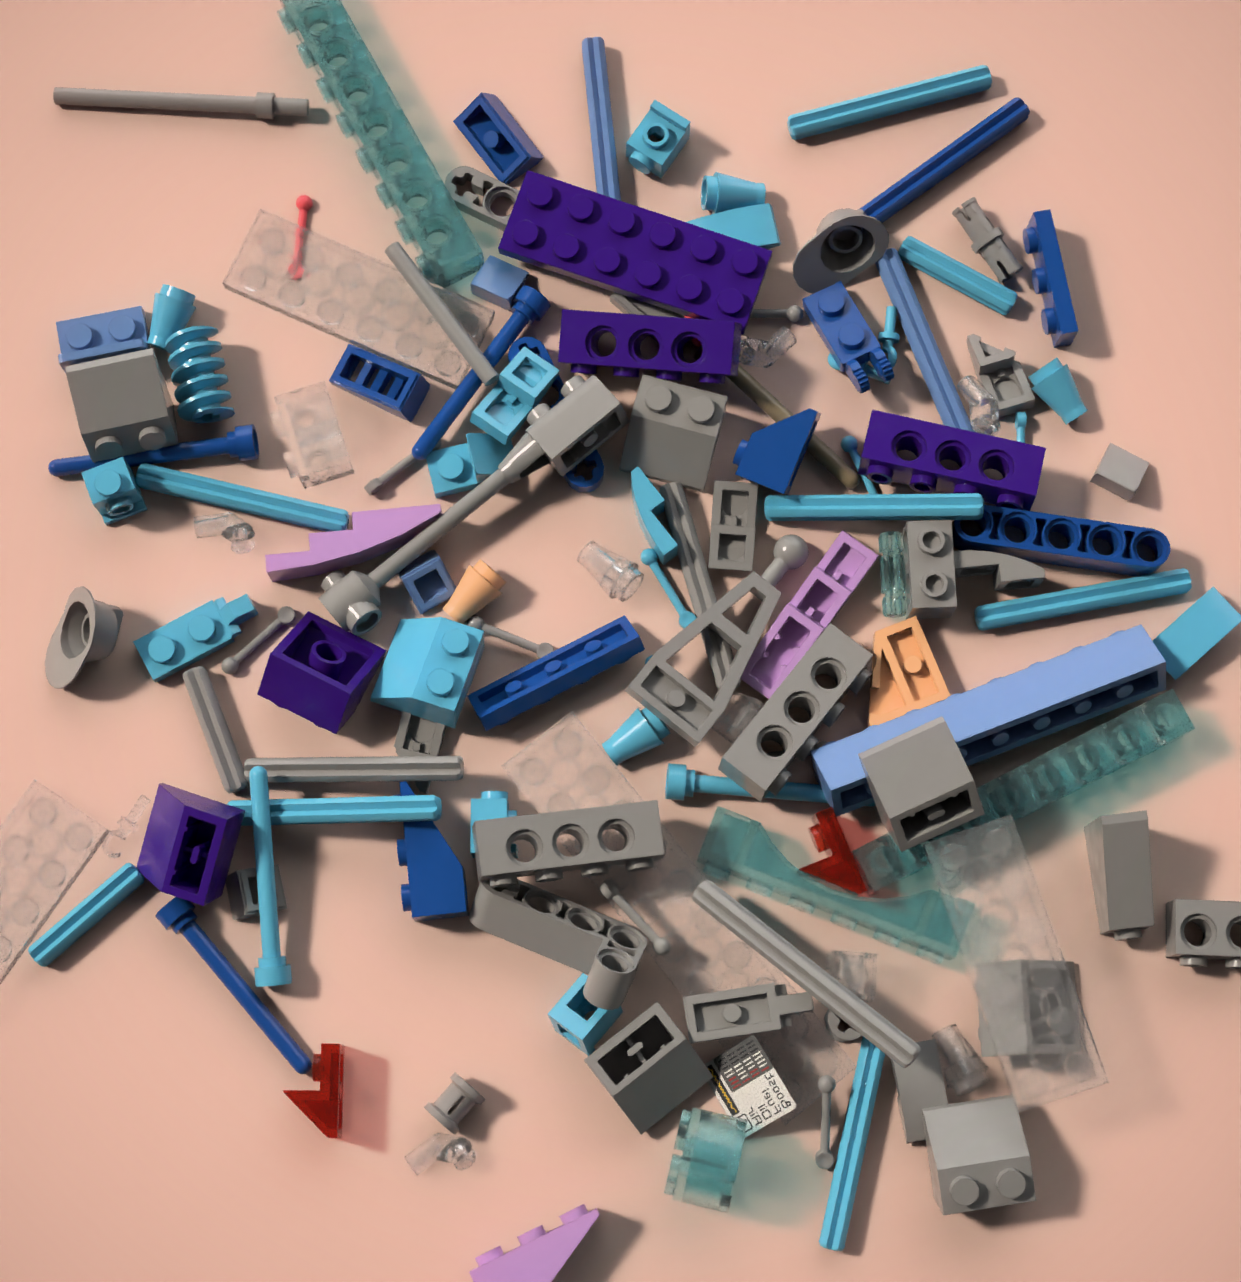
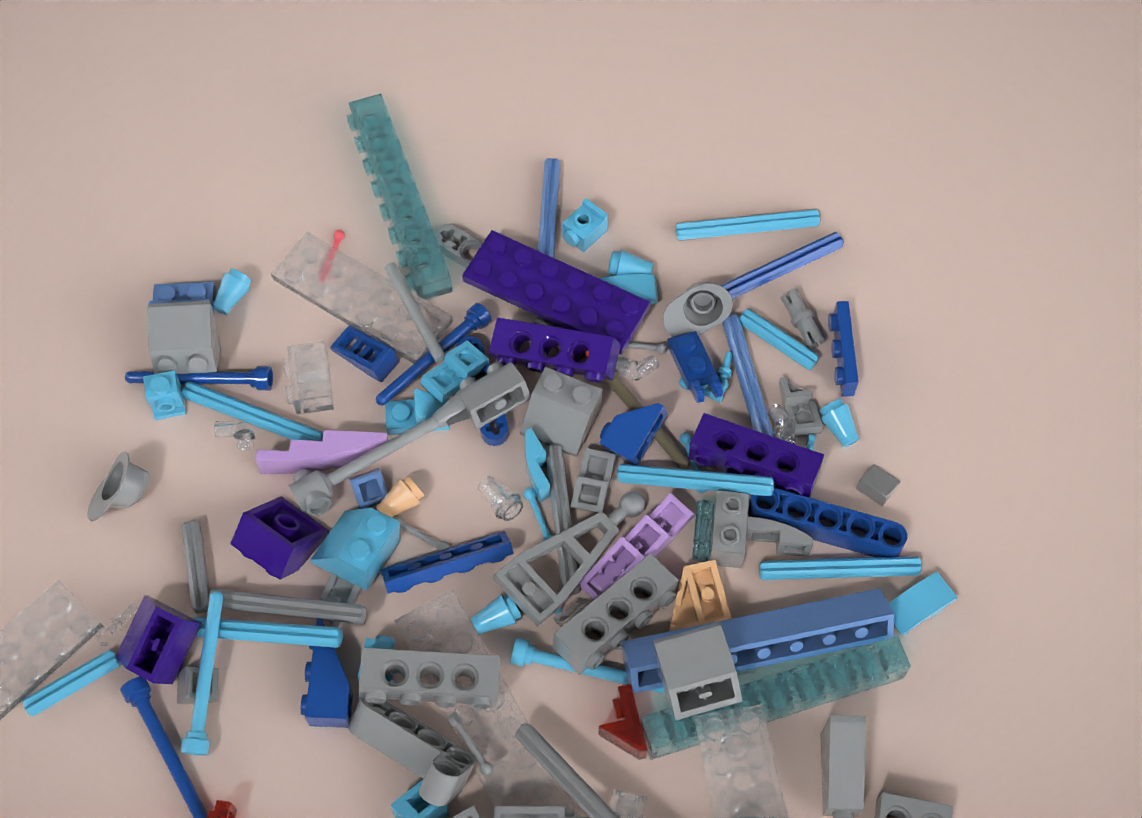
camera: 10 degrees right, 15 degrees down
(193, 636) = (197, 500): medium azure hinge -> none
(195, 375) = (241, 329): medium azure piece -> none
(263, 104) = (324, 171): light grey bar -> none
(286, 616) = (264, 497): light grey hinge -> none
(377, 483) = (346, 419): light grey hinge -> none
(498, 138) = (477, 211): blue slope -> none
(498, 282) = (458, 300): medium blue slope -> none
(744, 850) = (559, 707): clear light blue arch -> none

